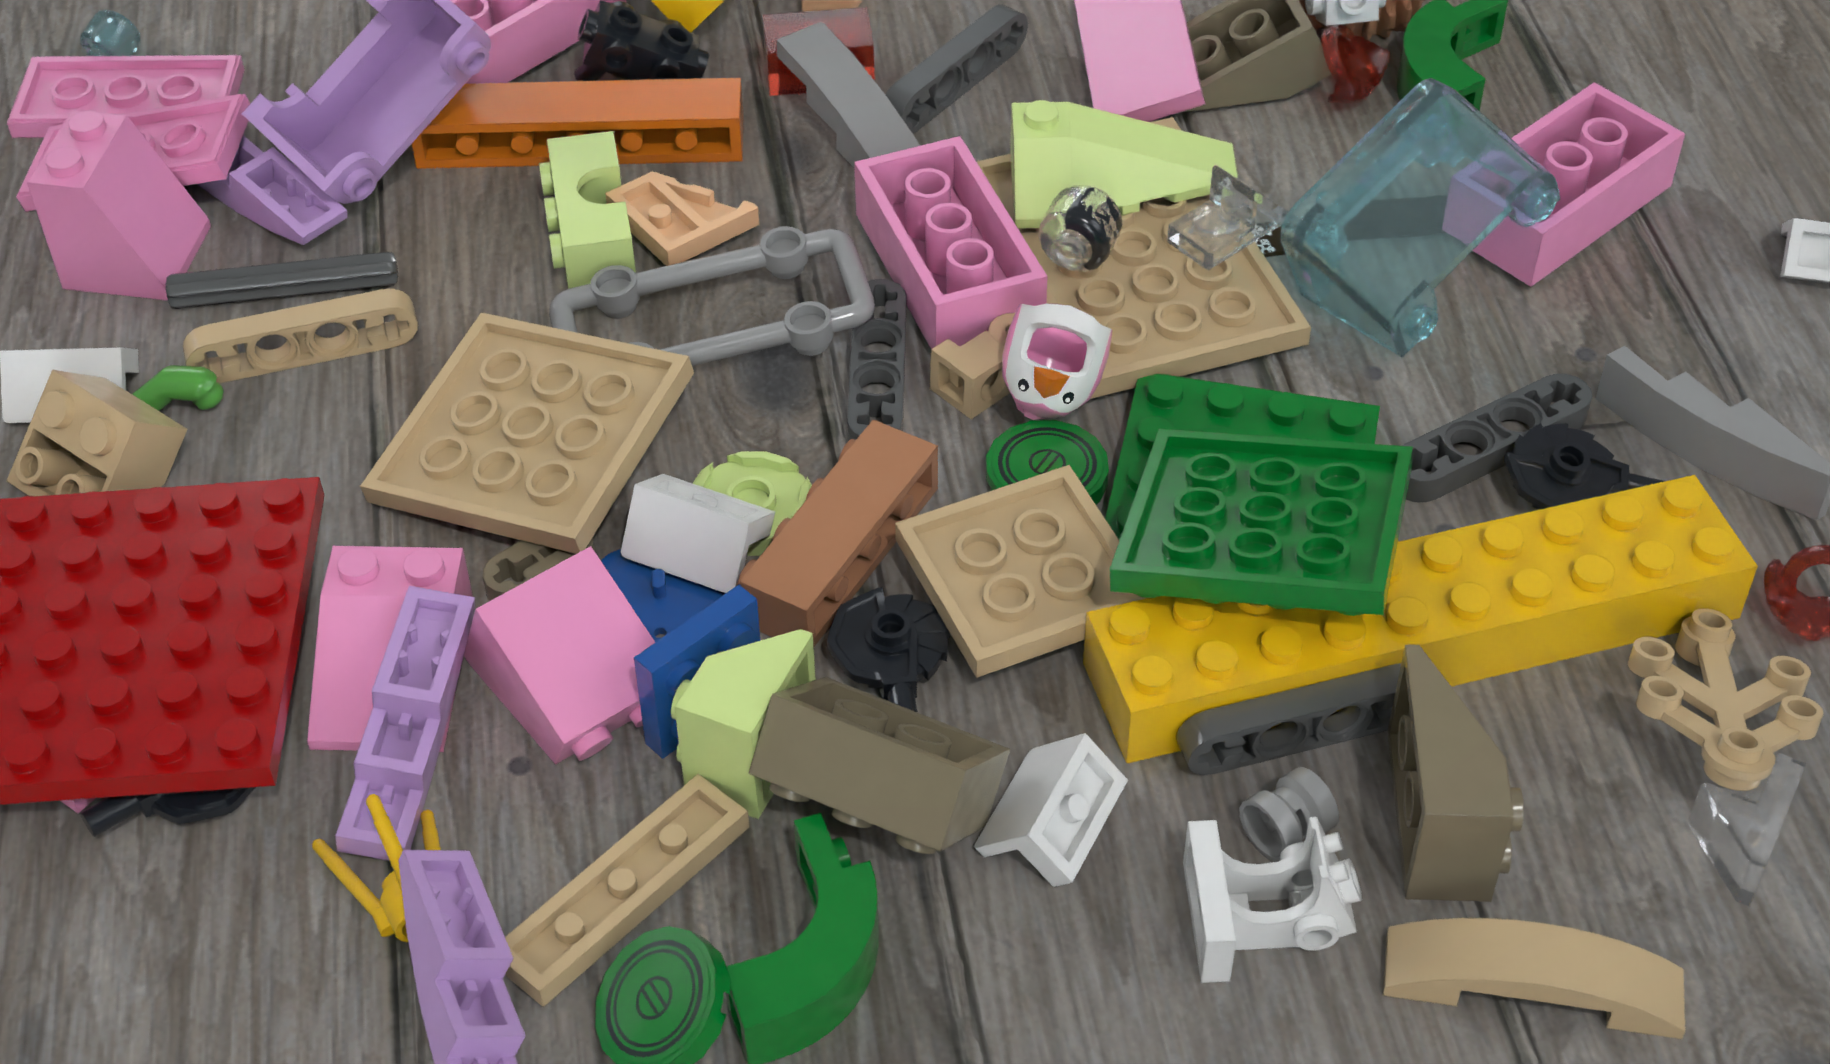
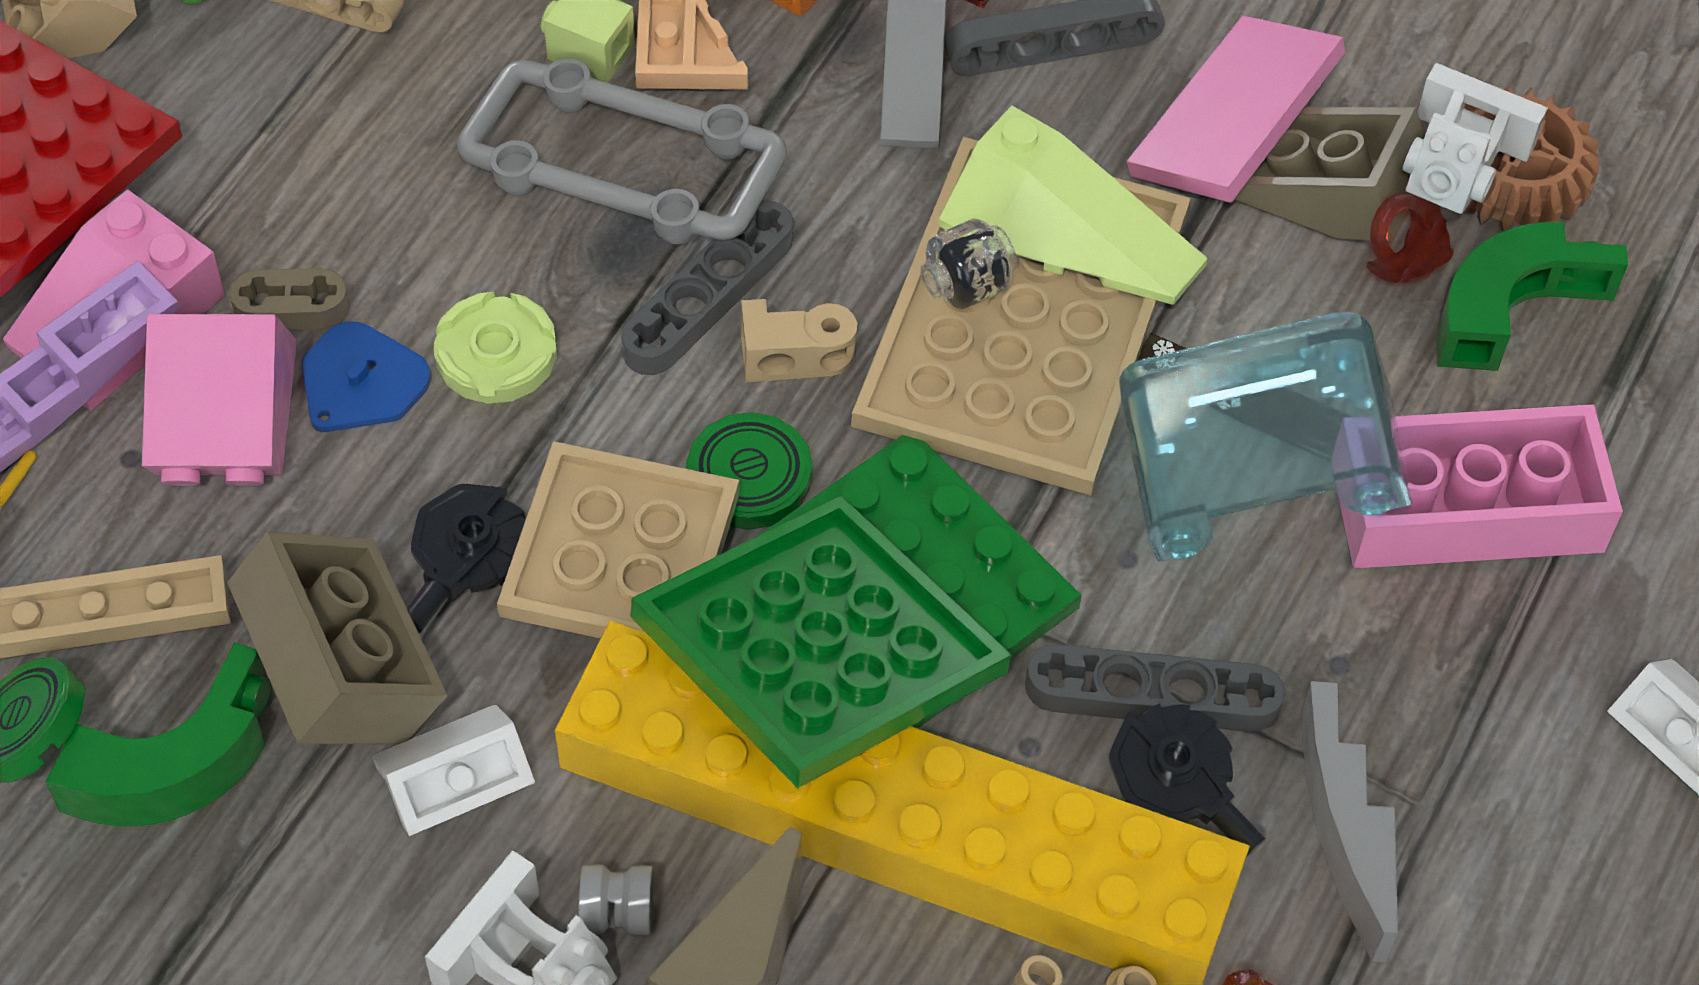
camera: 35 degrees right, 10 degrees up
(529, 432) = (373, 176): tan plate -> none
(679, 654) = (286, 472): blue plate -> none
(692, 531) = (413, 342): white panel -> none
(725, 709) = (275, 501): yellowish green slope -> none
(841, 530) = (511, 421): nougat brick -> none
(946, 239) = (858, 206): bright pink brick -> none
(1053, 359) = (821, 373): piece -> none
(1226, 222) = (1117, 333): clear slope -> none
(1242, 734) = (709, 826): dark grey beam -> none

